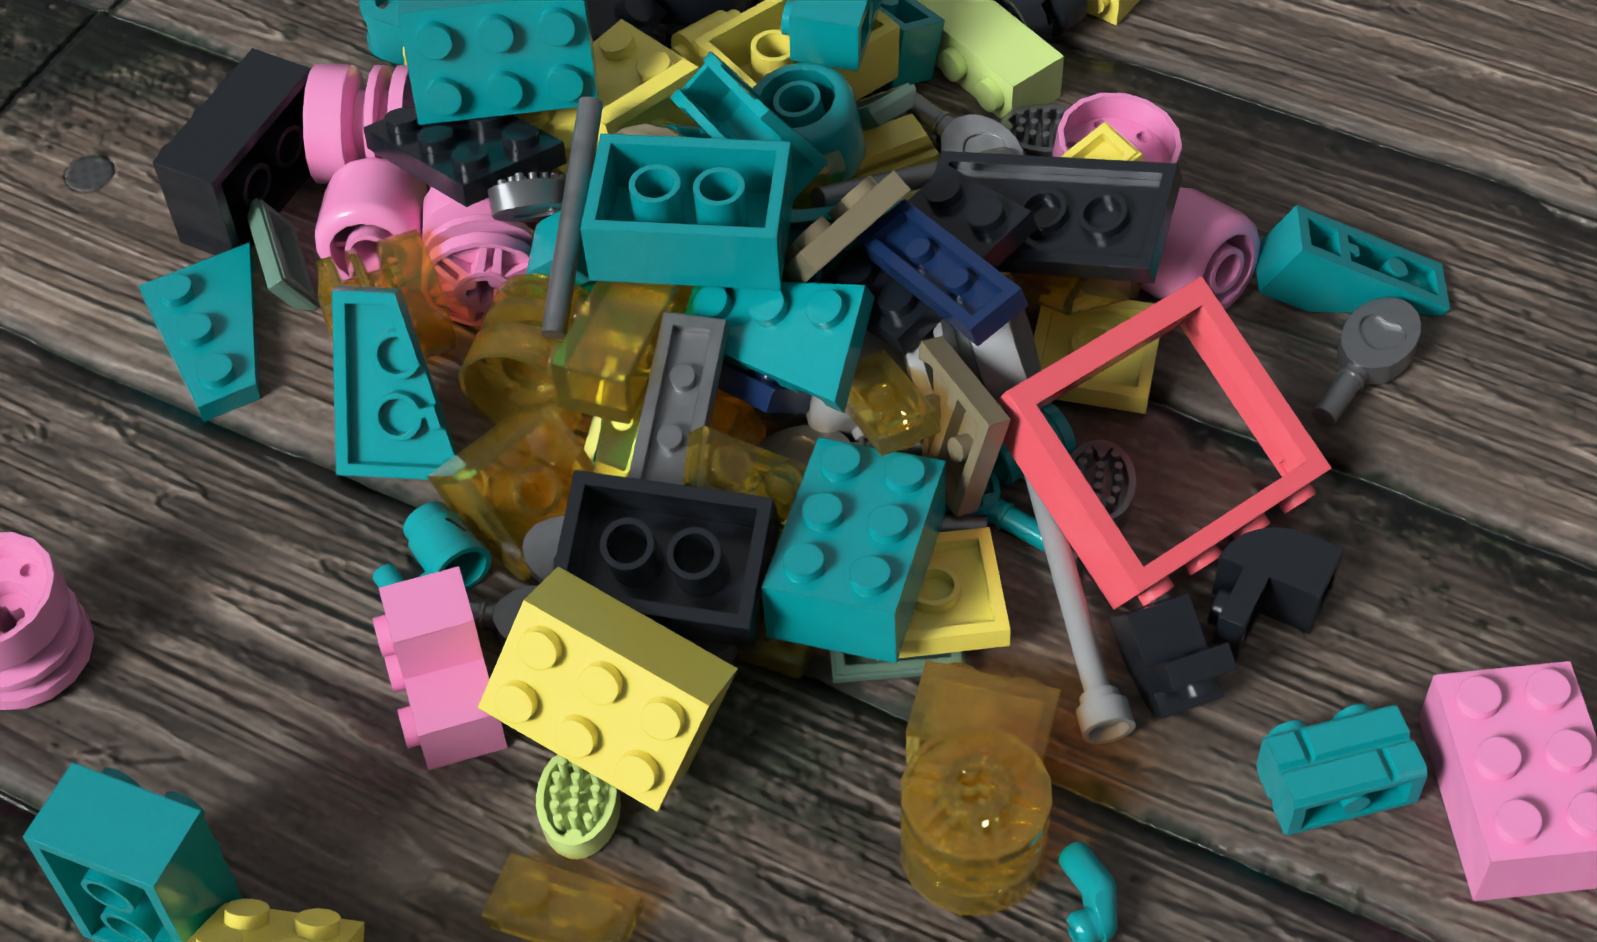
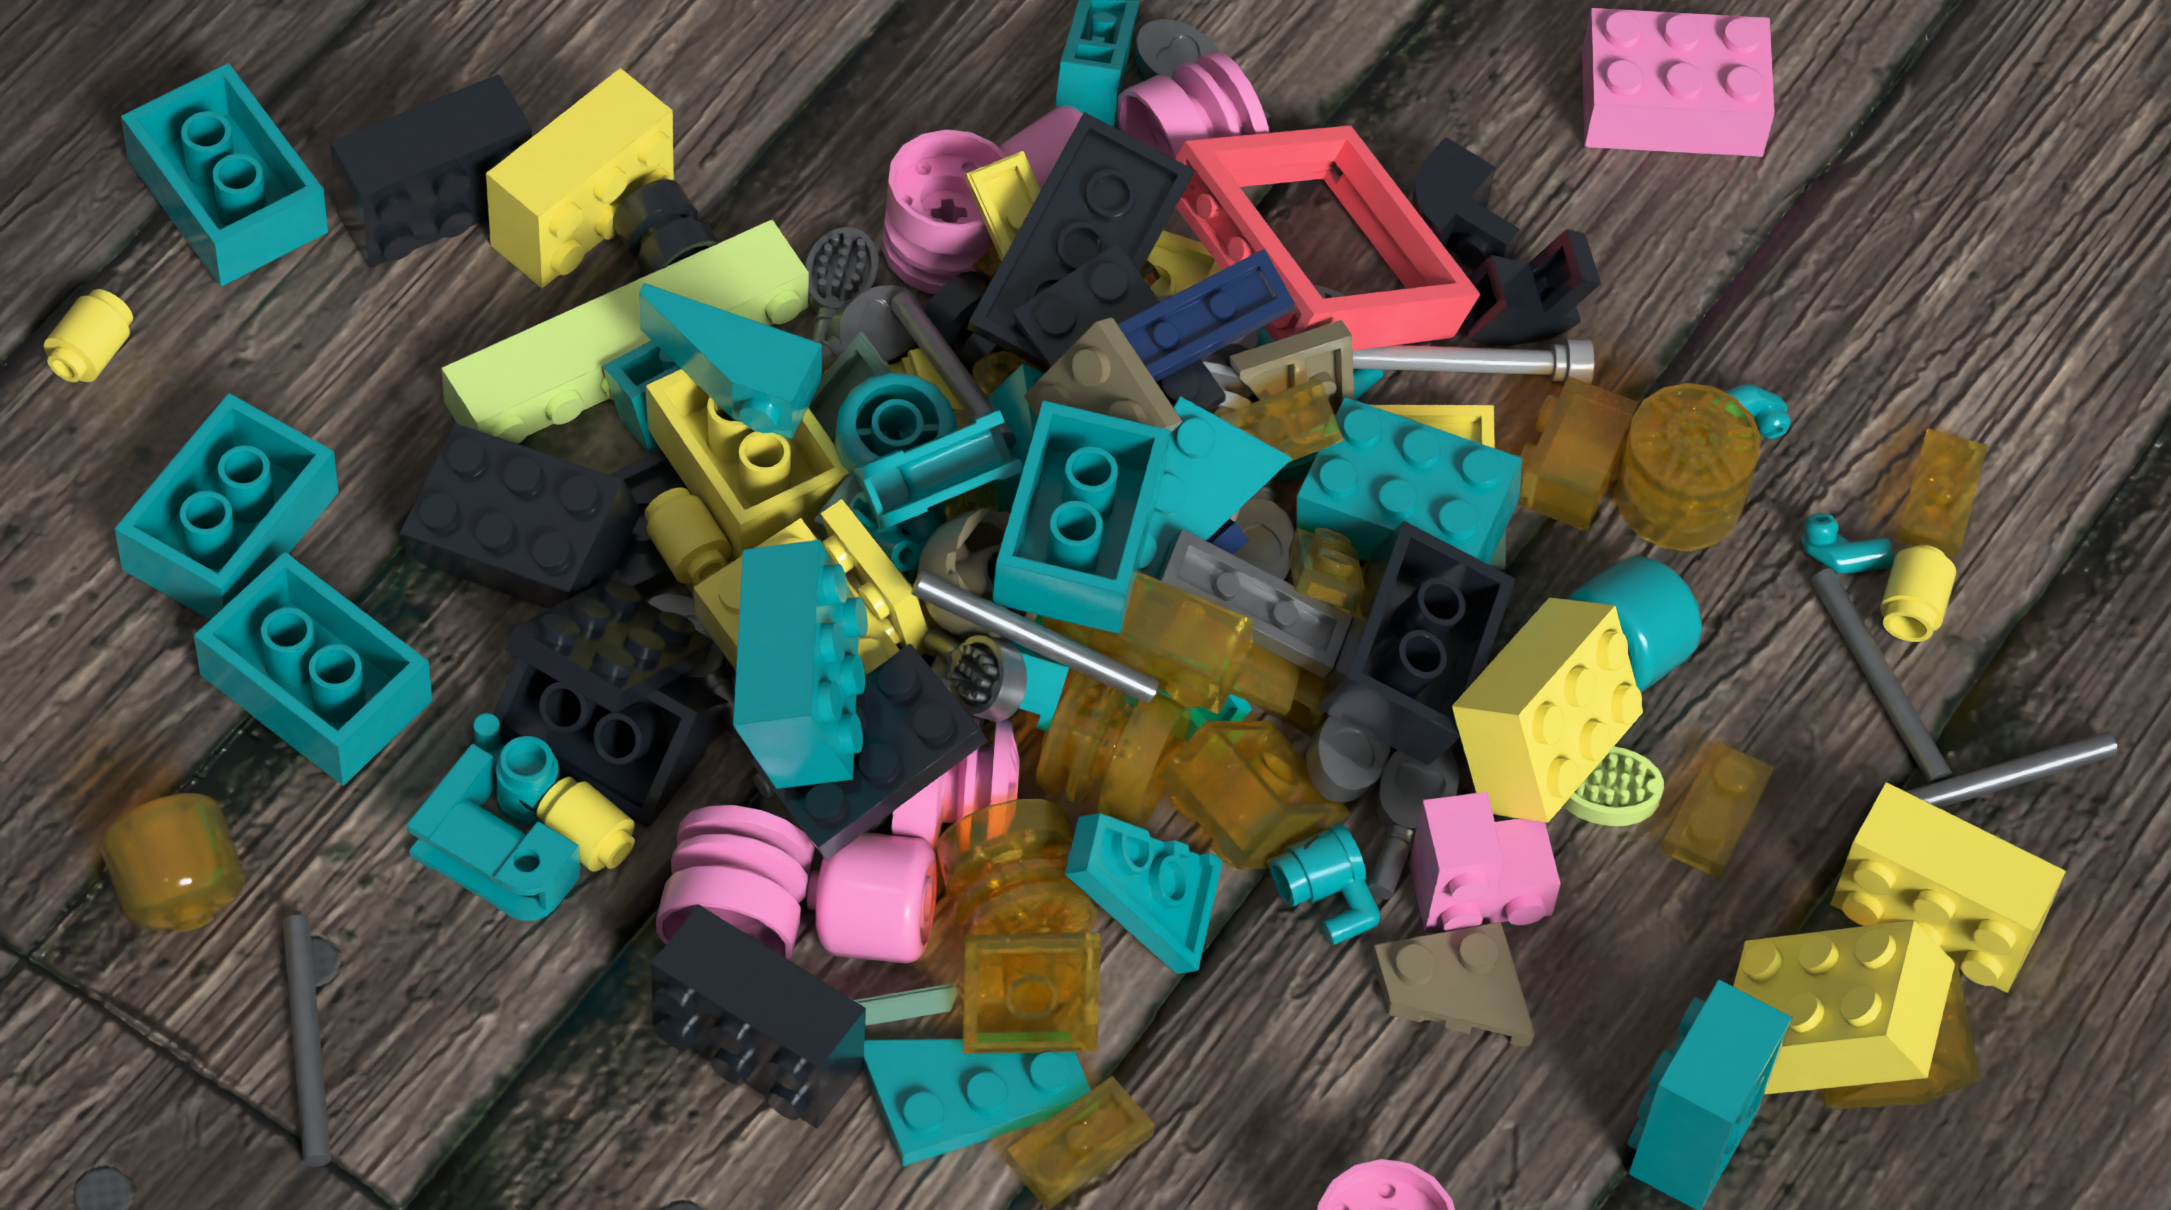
camera: 90 degrees left, 5 degrees up
(149, 404) = (1079, 1142): none -> clear yellow plate
(278, 329) = (1029, 993): none -> clear yellow slope
(333, 688) = (1455, 980): none -> dark tan wing
(758, 785) = (1653, 611): none -> teal head
(1288, 326) = (1198, 103): none -> bright pink wheel
(1340, 768) = (1648, 205): teal brick -> none

